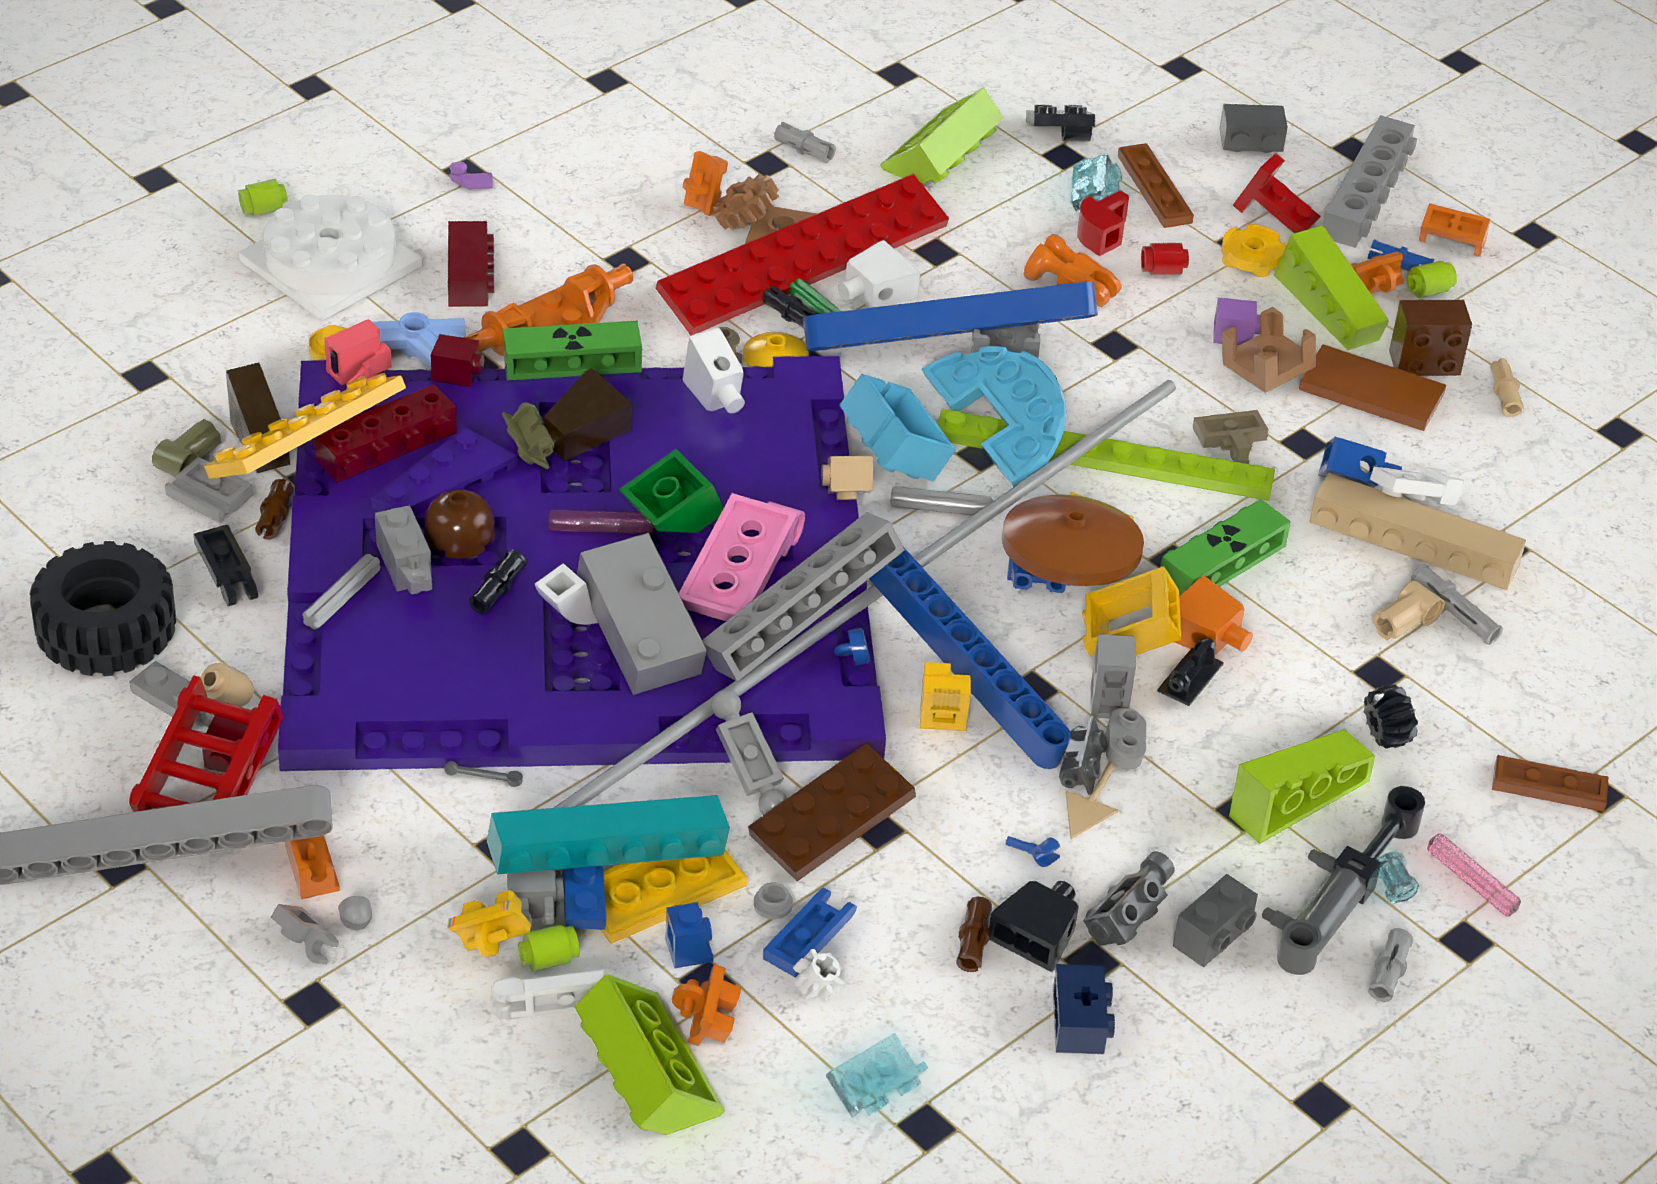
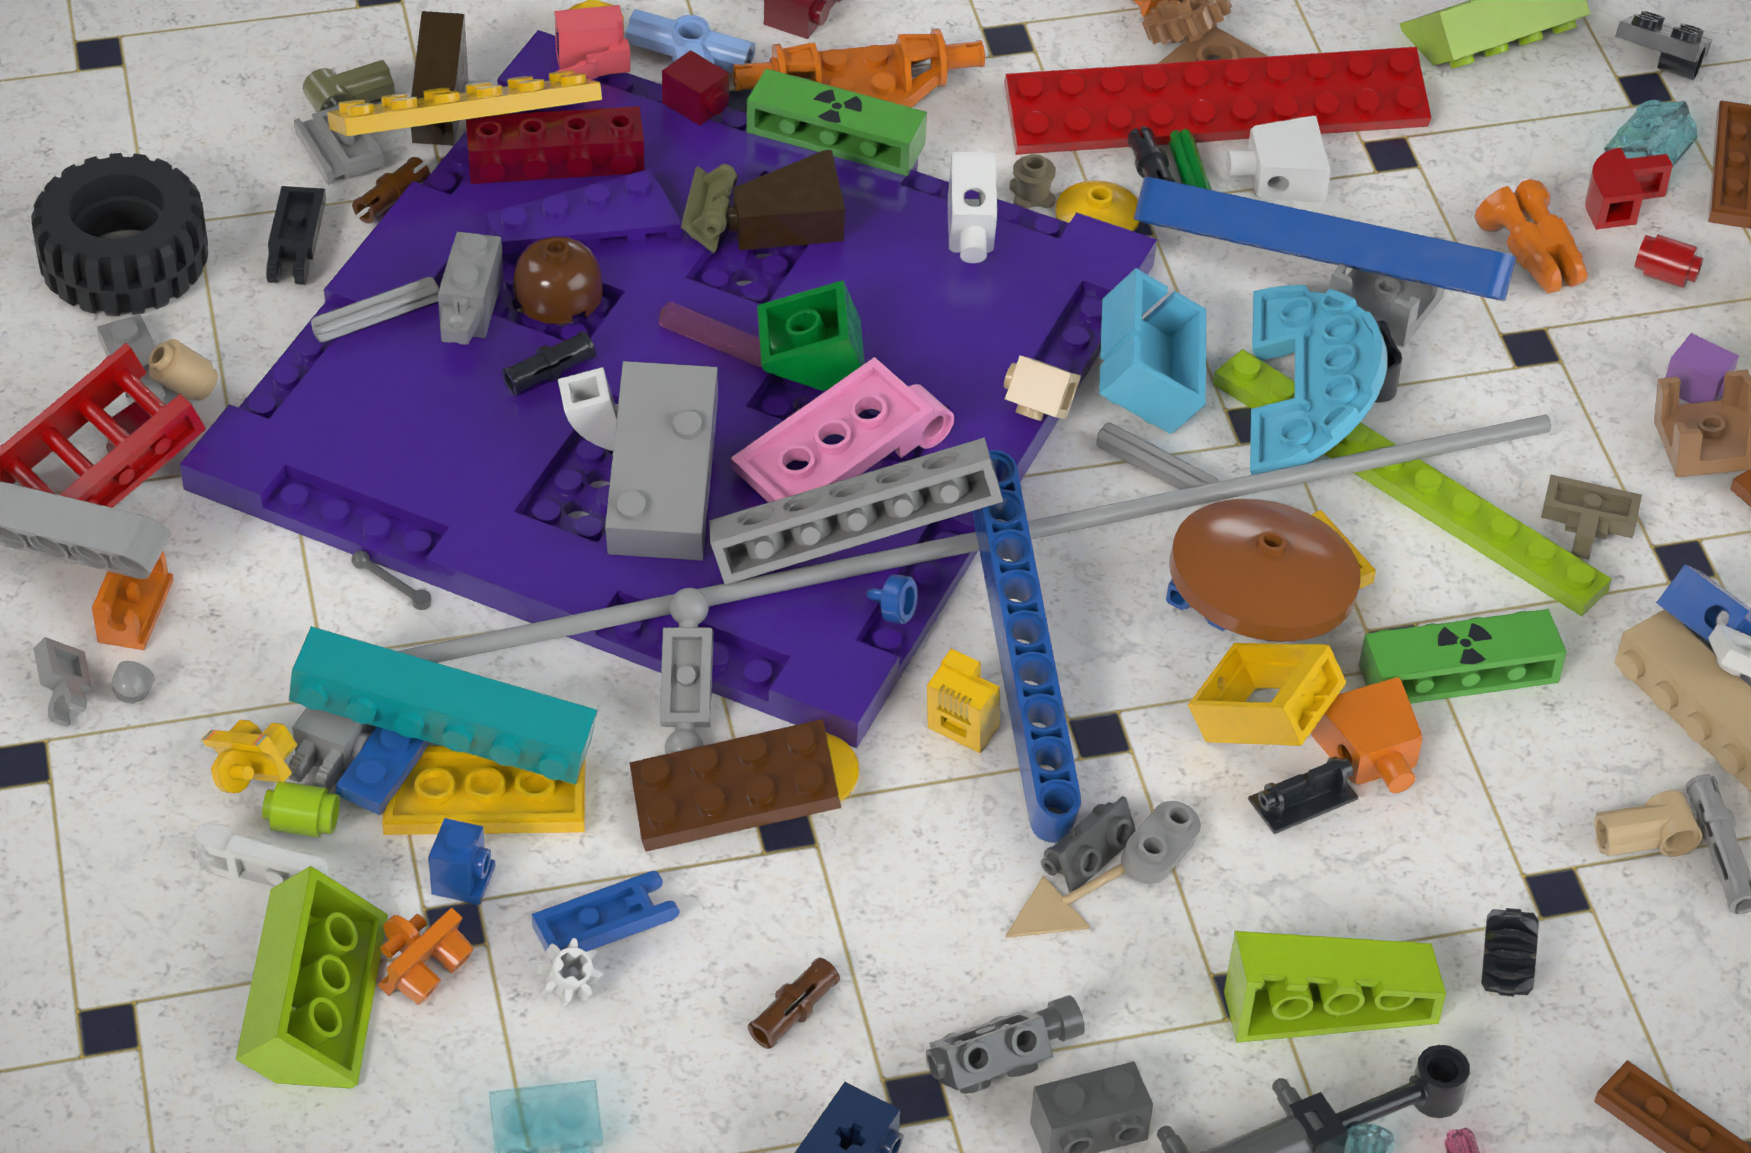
camera: 30 degrees right, 5 degrees up
(773, 901) = (592, 863): light grey plate -> none
(1036, 922) = (876, 1021): black torso -> none
(1042, 853) = (954, 940): blue hand -> none
(1112, 674) = (1186, 755): light grey brick -> none

